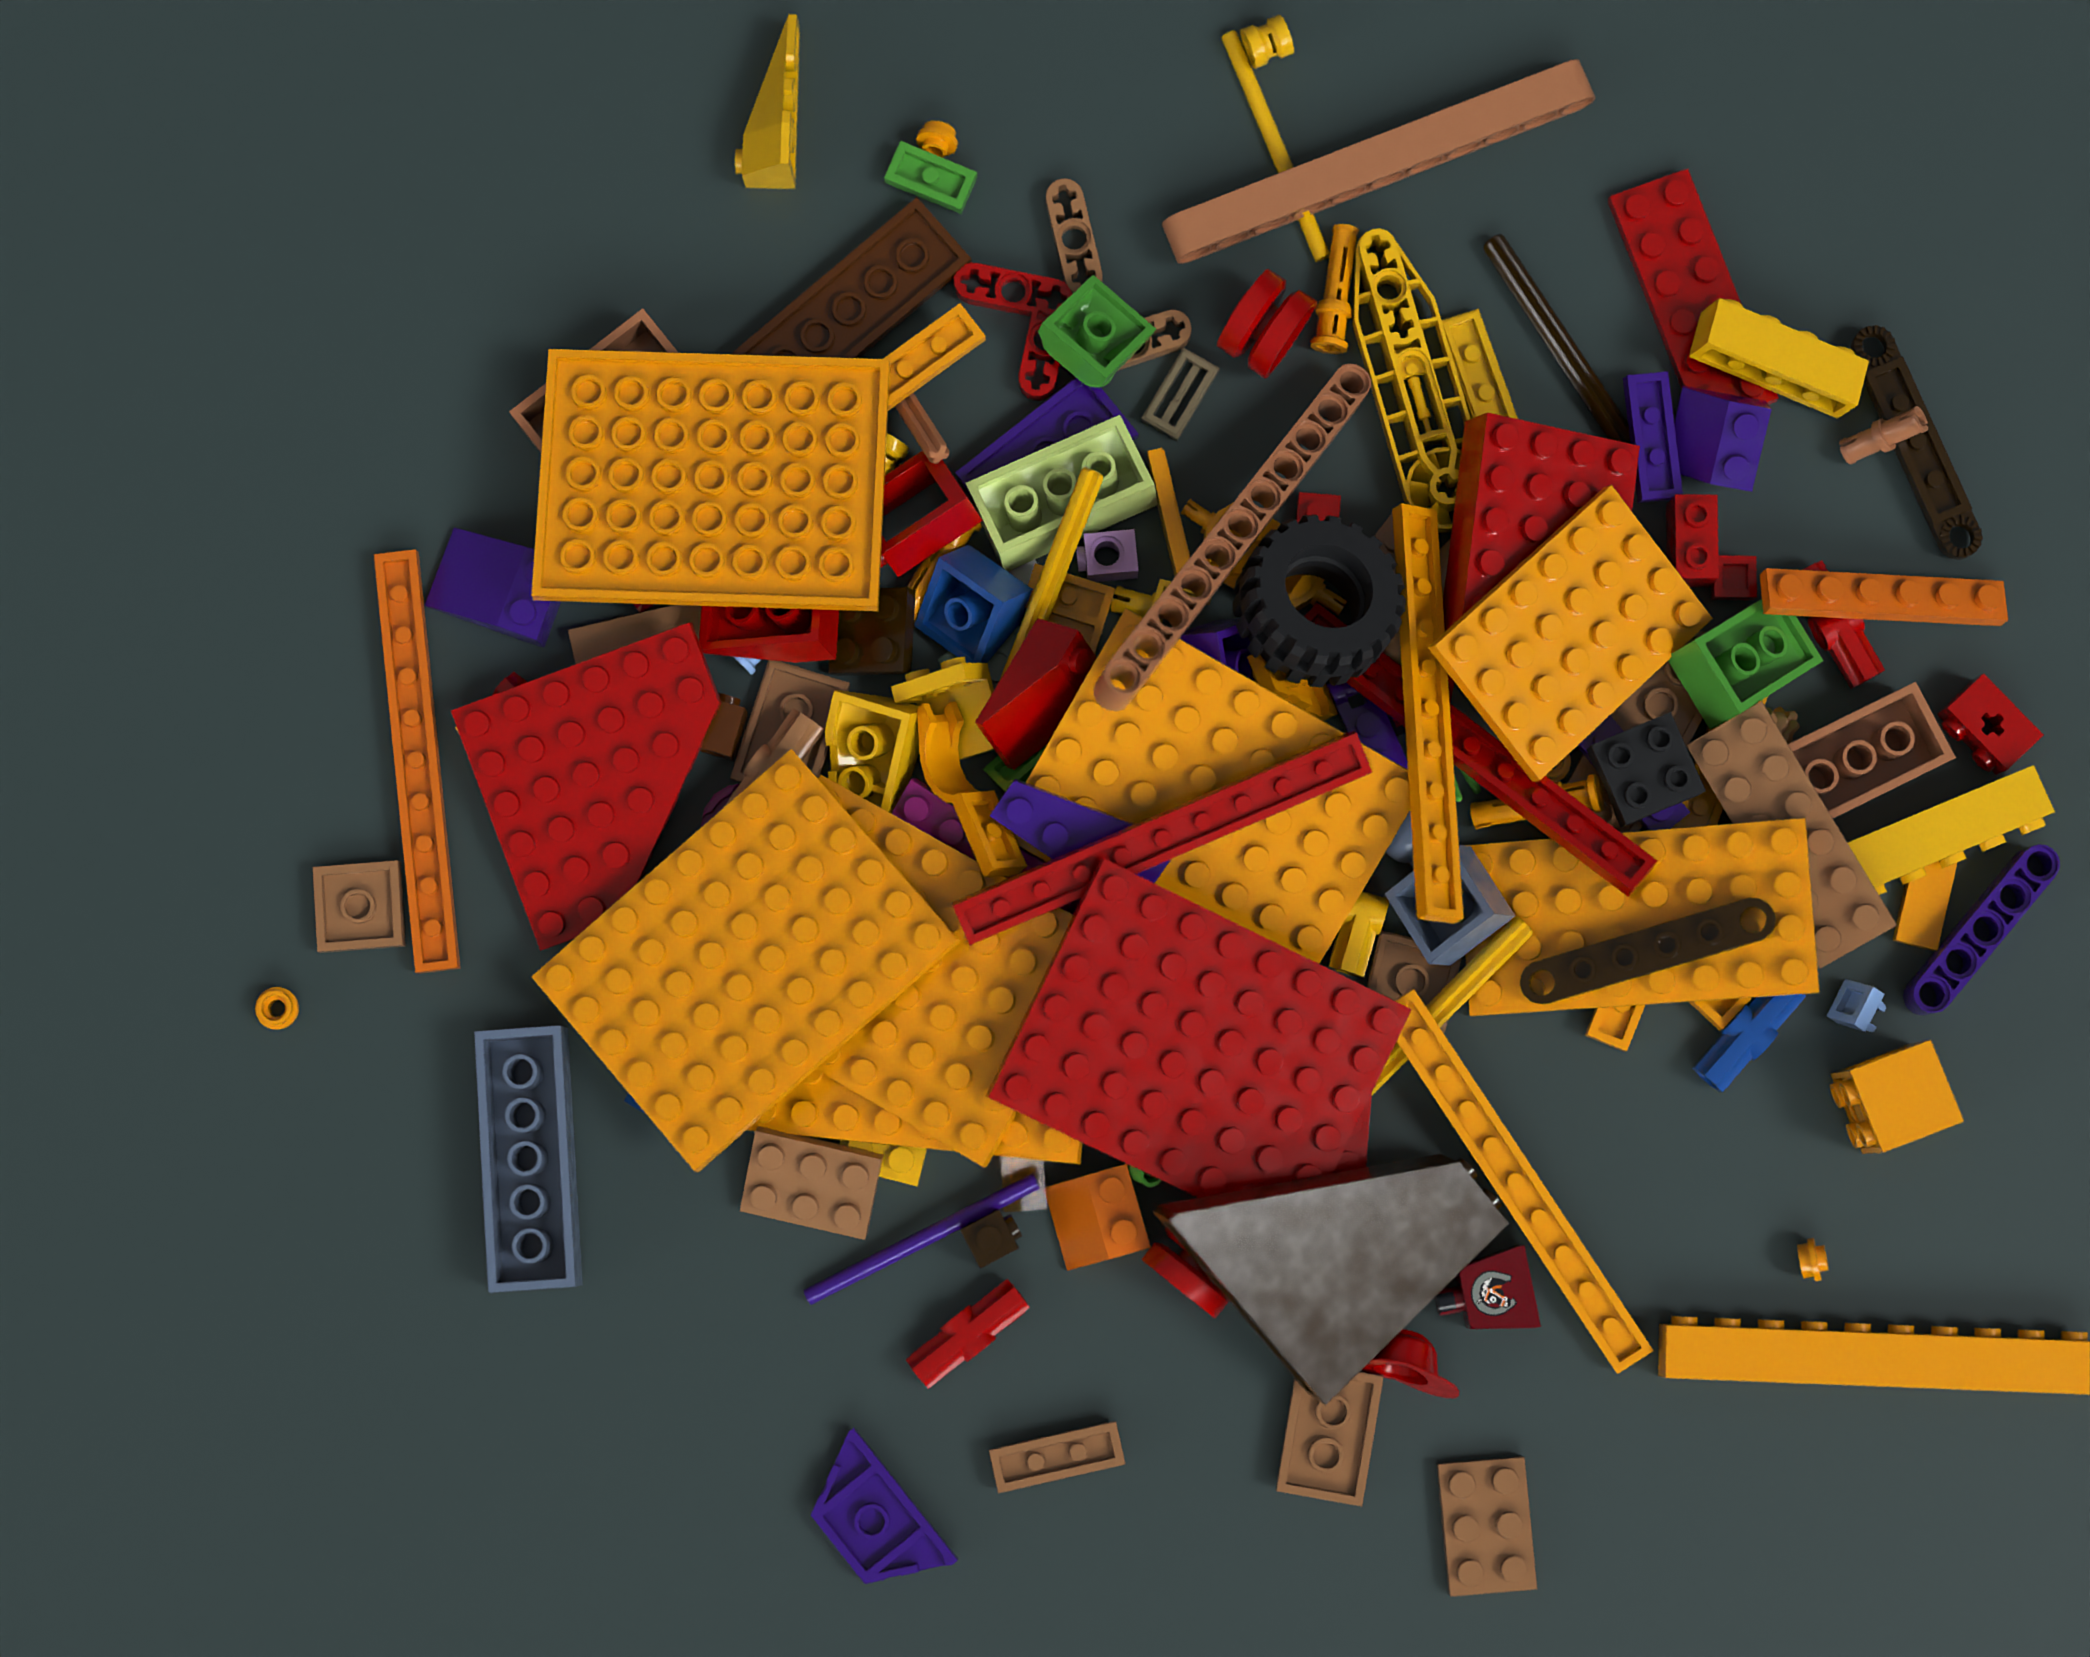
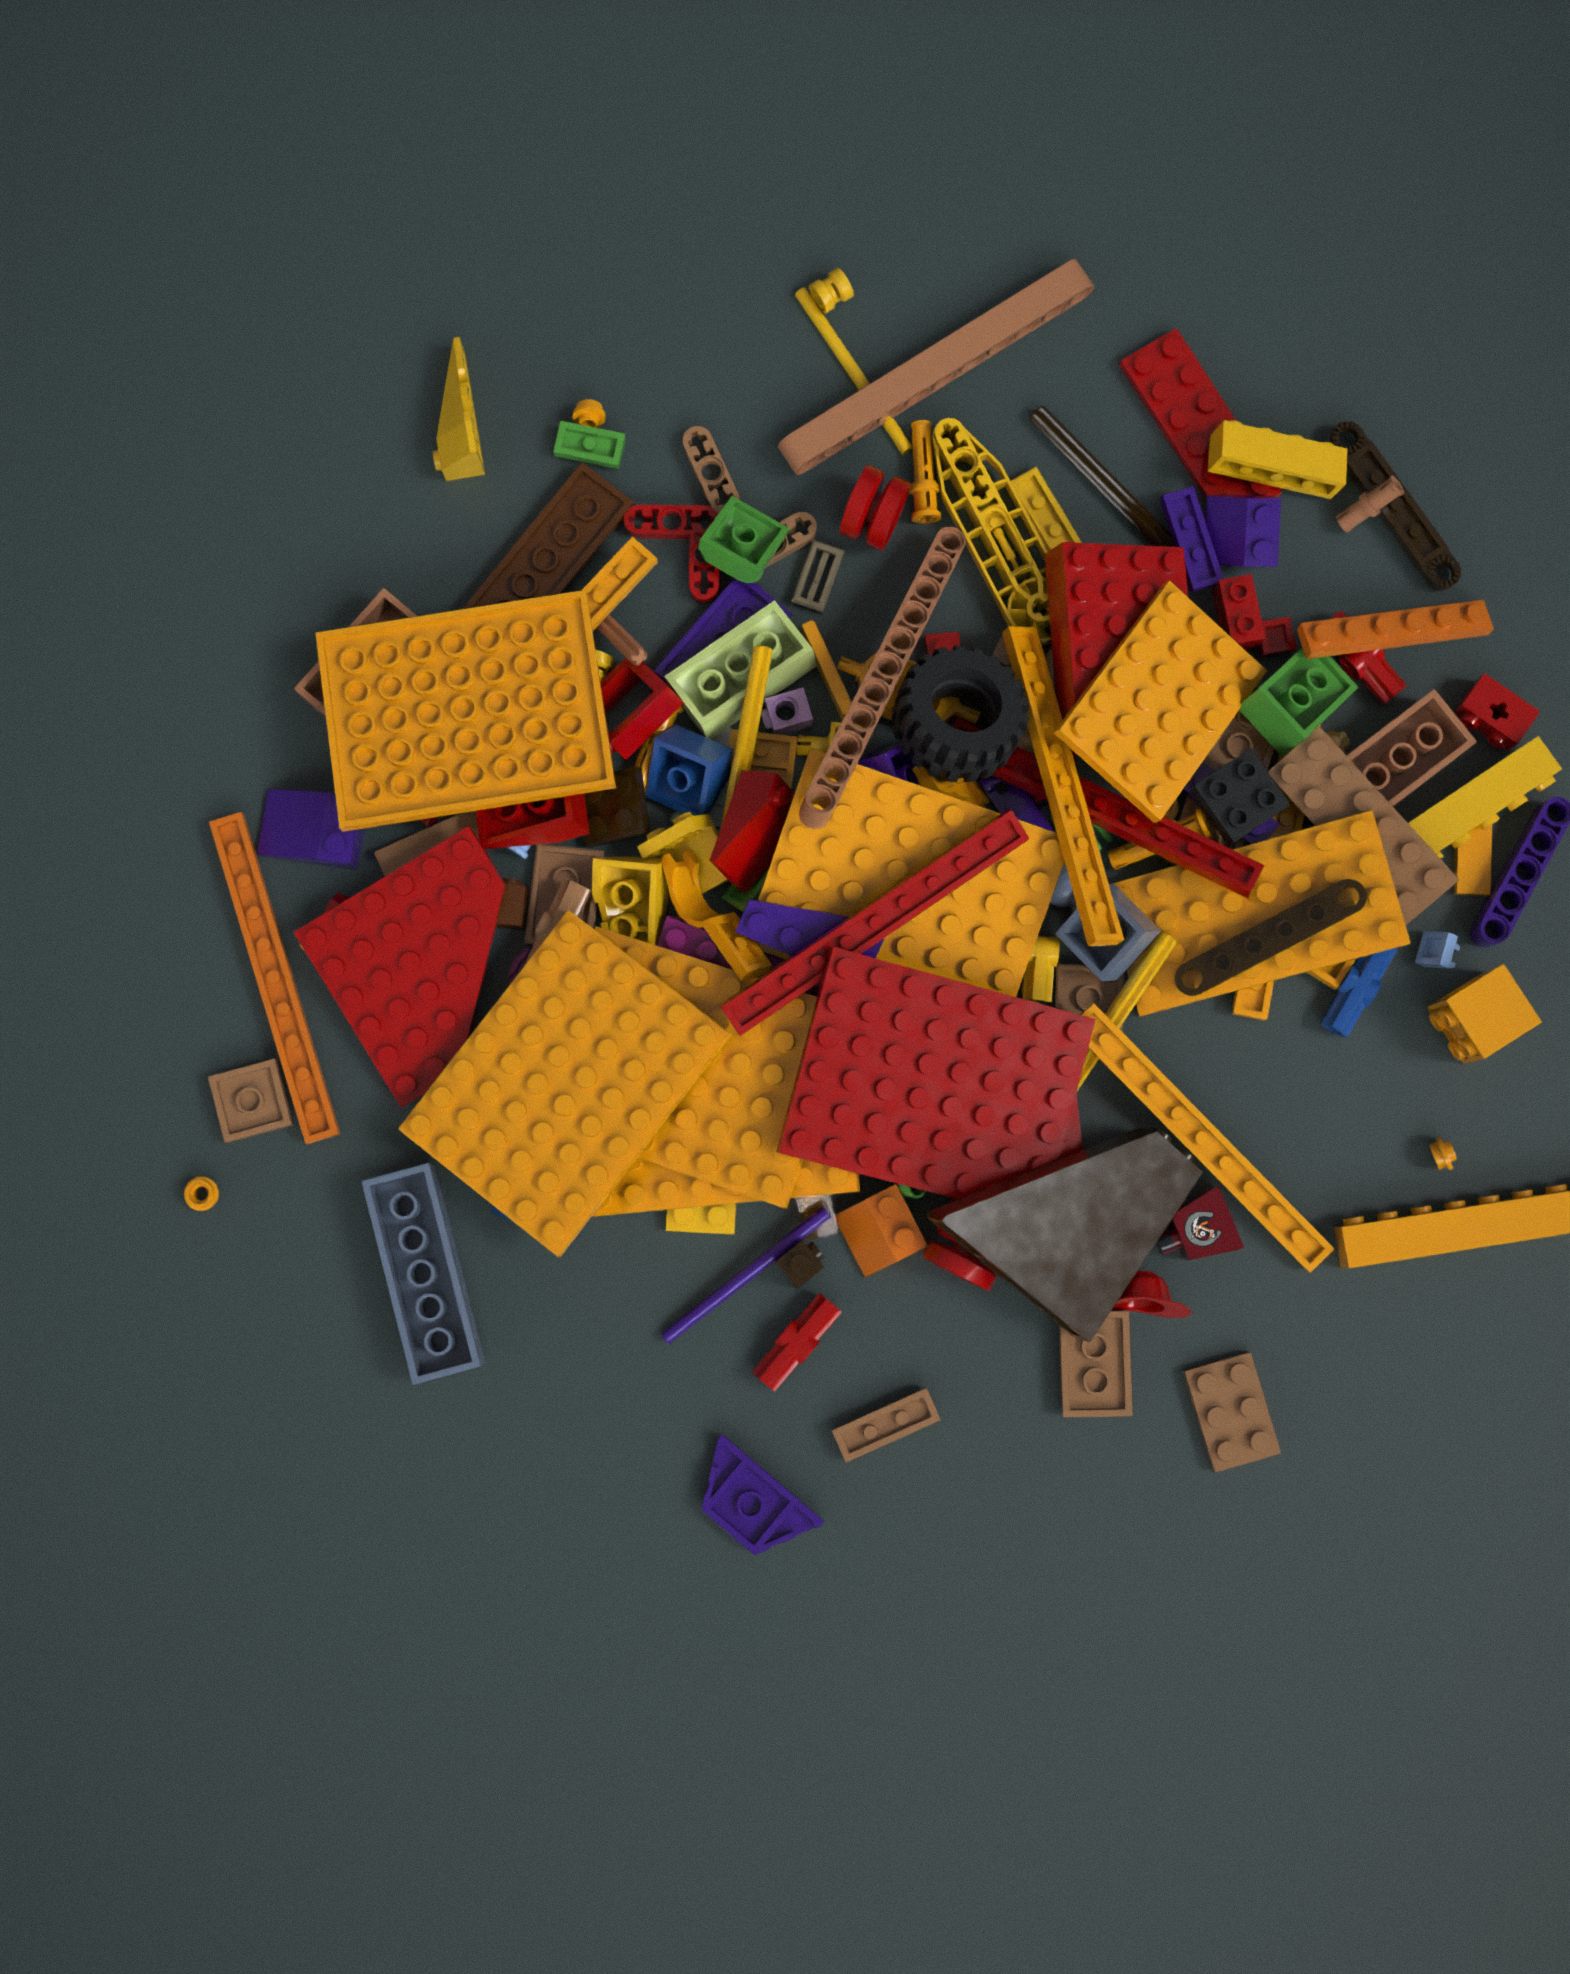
camera: 15 degrees left, 0 degrees up
(811, 1182) = (650, 1248): medium nougat plate -> none

